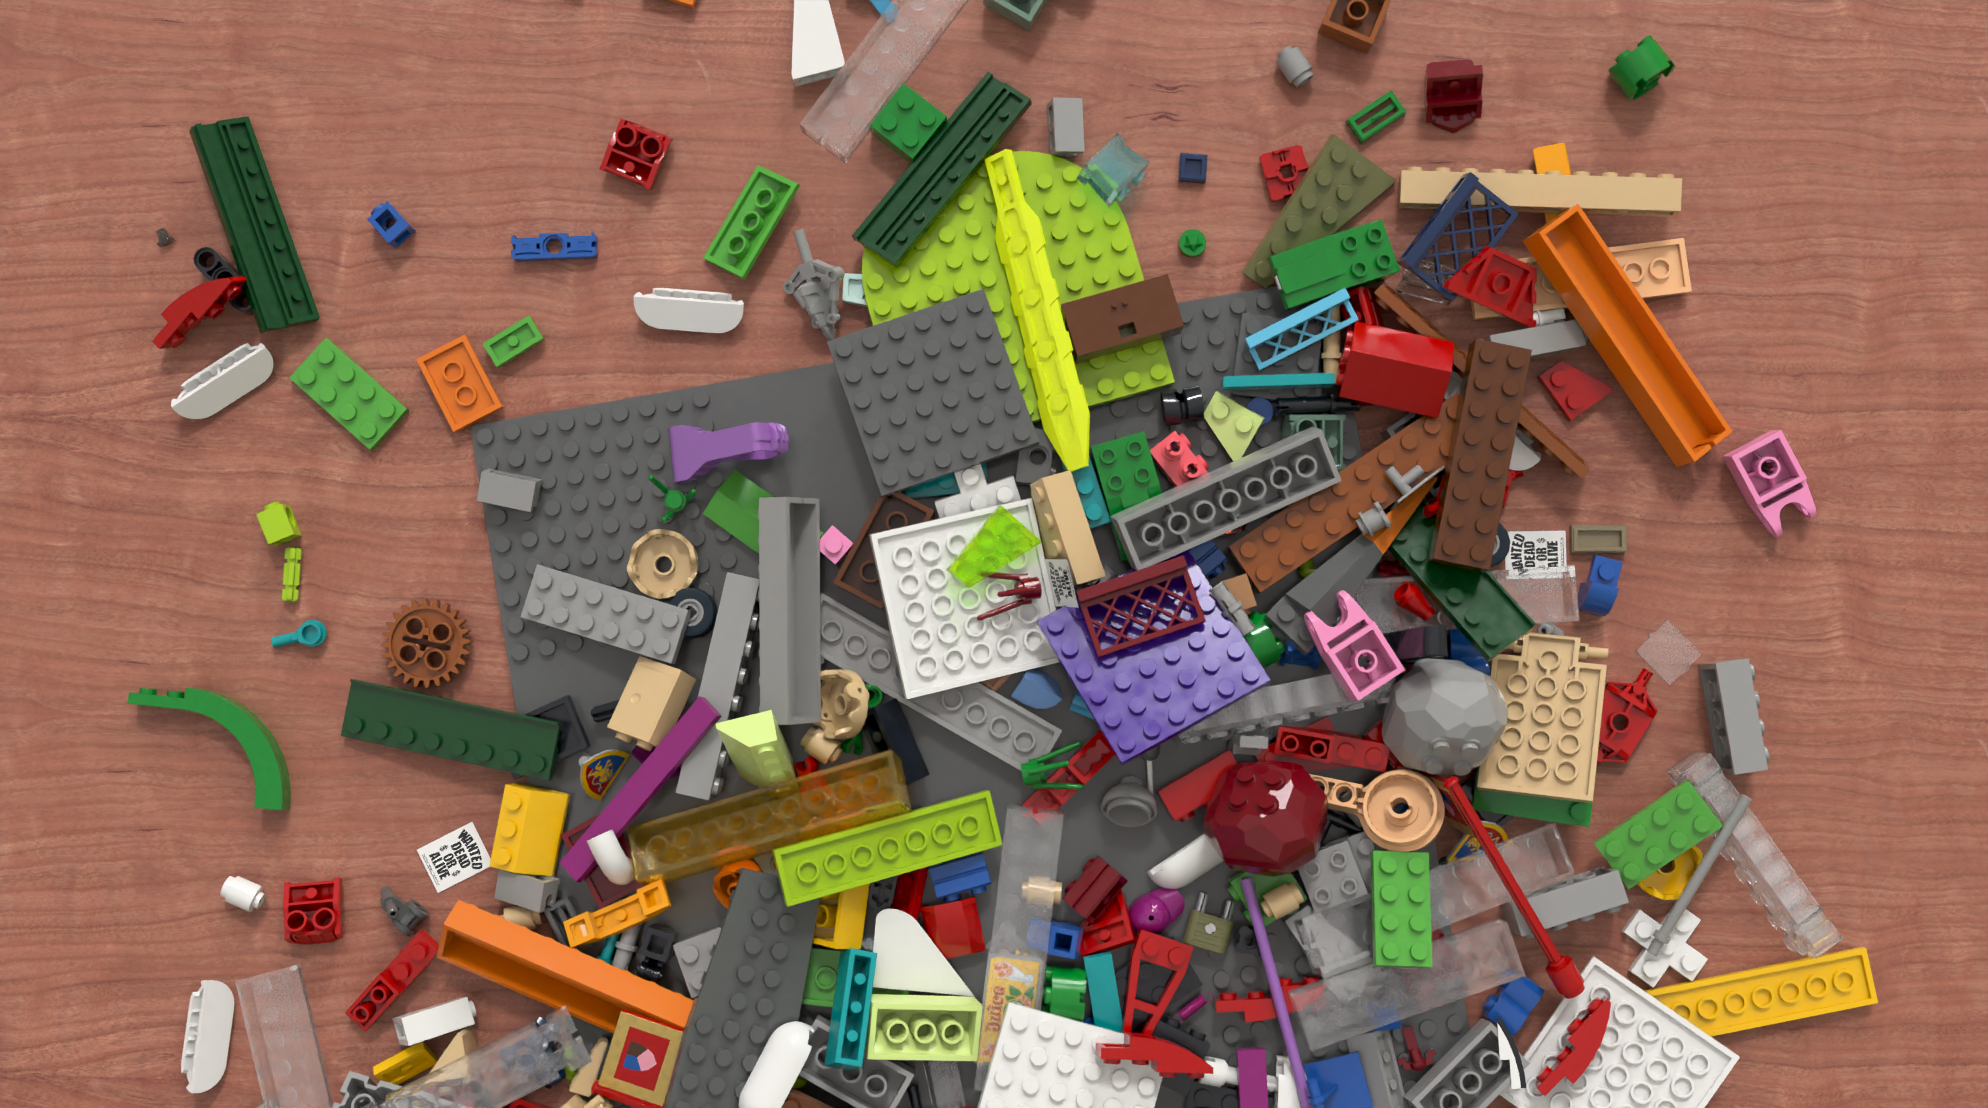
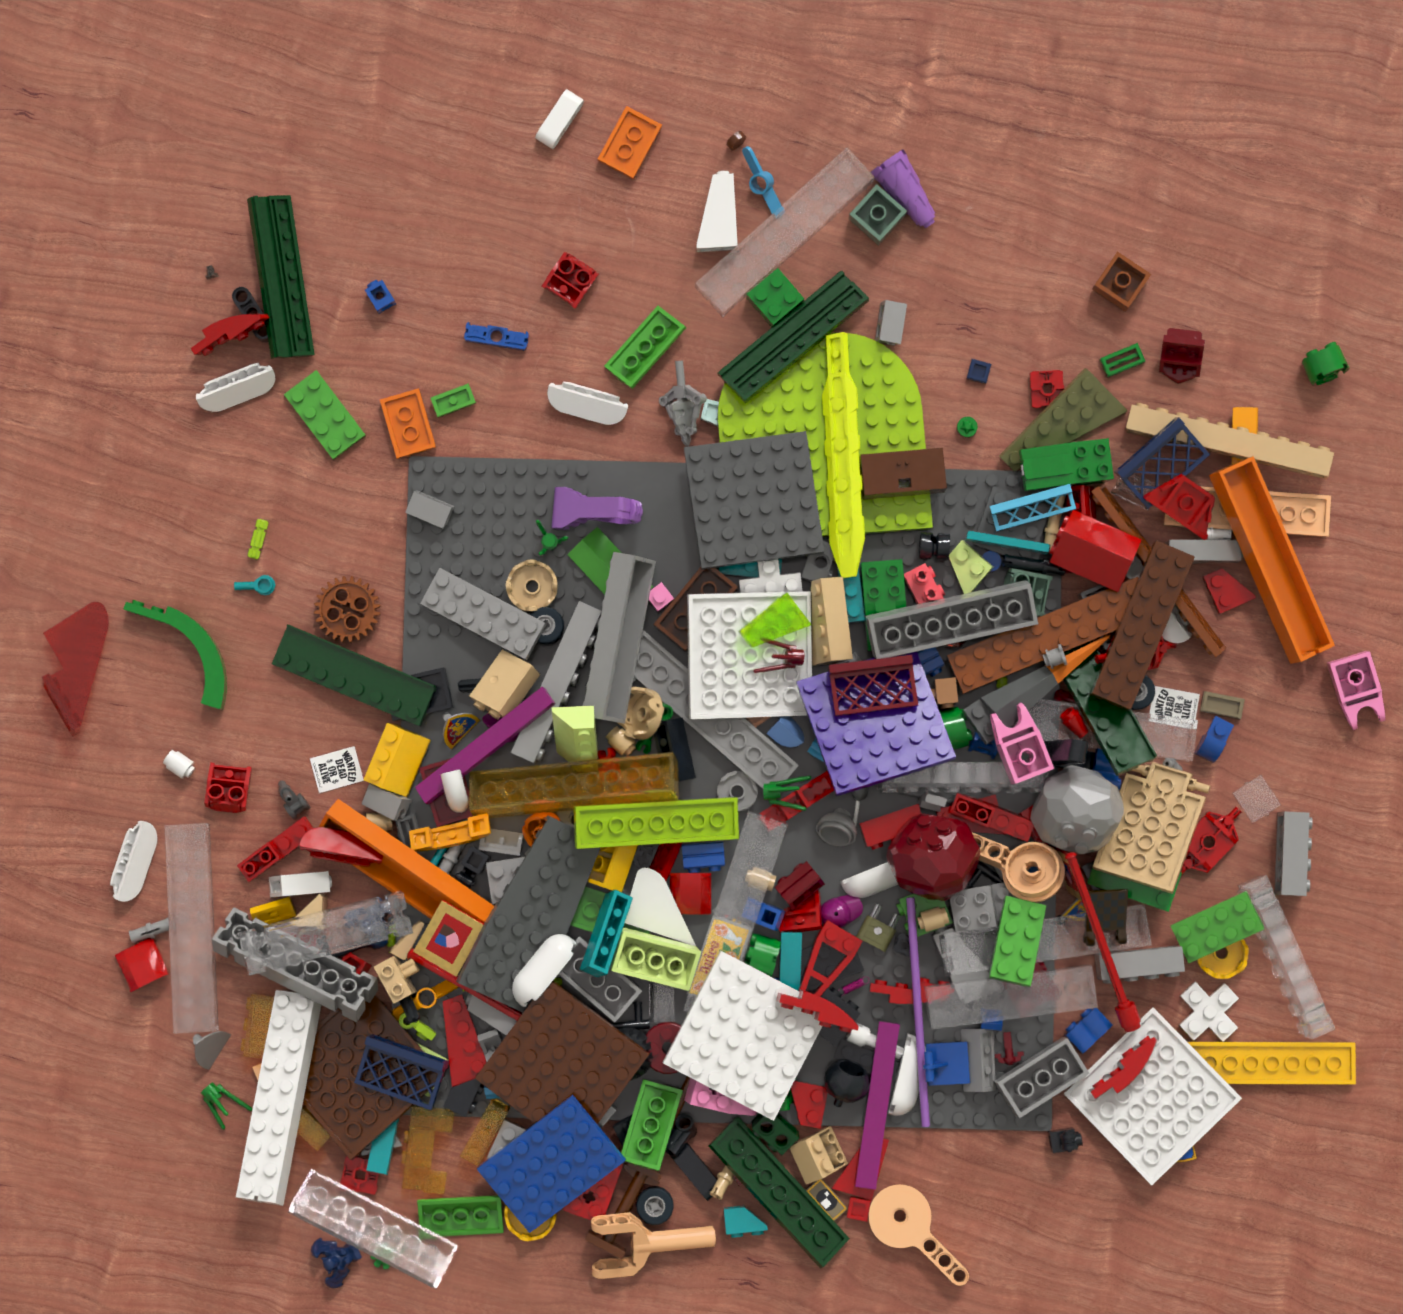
camera: 15 degrees right, 0 degrees up
(80, 767) = (78, 647): none -> clear red piece
(278, 524) = (256, 500): lime brick -> none
(469, 964) = (339, 847): none -> brick
(691, 911) = (502, 842): none -> light grey hinge
(988, 763) = (741, 779): none -> light grey tile
(1061, 582) = (819, 653): white sticker -> none
(1114, 171) = (919, 363): clear light blue hips -> none
(1232, 608) = (939, 700): light grey pin -> none
(1294, 66) = (1069, 311): light grey brick -> none
(1402, 482) = (1083, 634): light grey shield -> none
(1509, 1051) = (1075, 1060): sticker -> none
(1516, 843) = (1111, 913): none -> dark brown flag
(1662, 935) = (1207, 1002): light grey bar -> none

